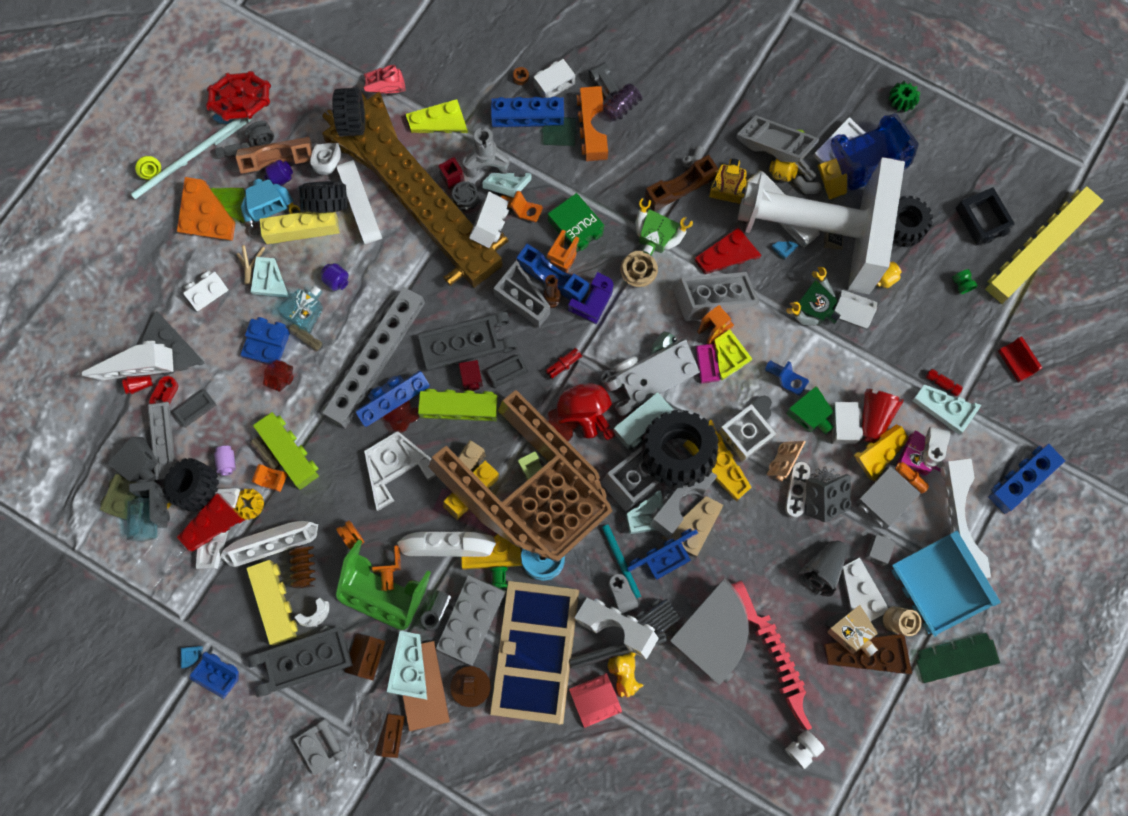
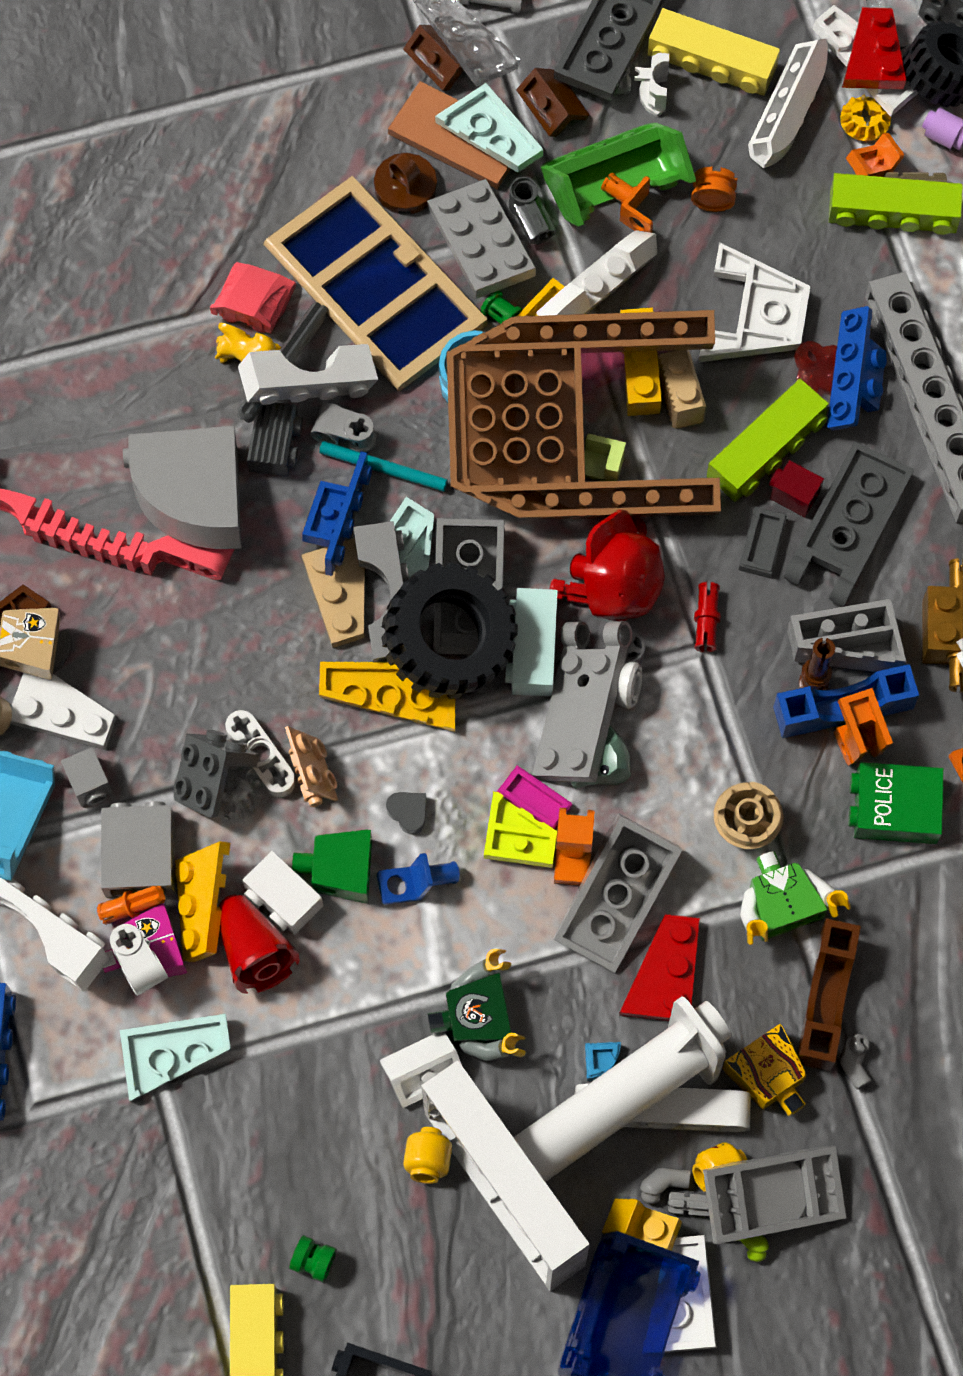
camera: 135 degrees right, 5 degrees down
(301, 567) = (725, 113): reddish brown piece -> none
(596, 302) = (756, 731): dark purple piece -> none
(747, 433) = (391, 749): white brick -> none
(825, 569) = (133, 686): dark grey cone -> none
(919, 214) = (476, 1231): black tyre -> none
(944, 382) = (207, 1085): red axle -> none
(1020, 359) = (136, 1219): red panel -> none

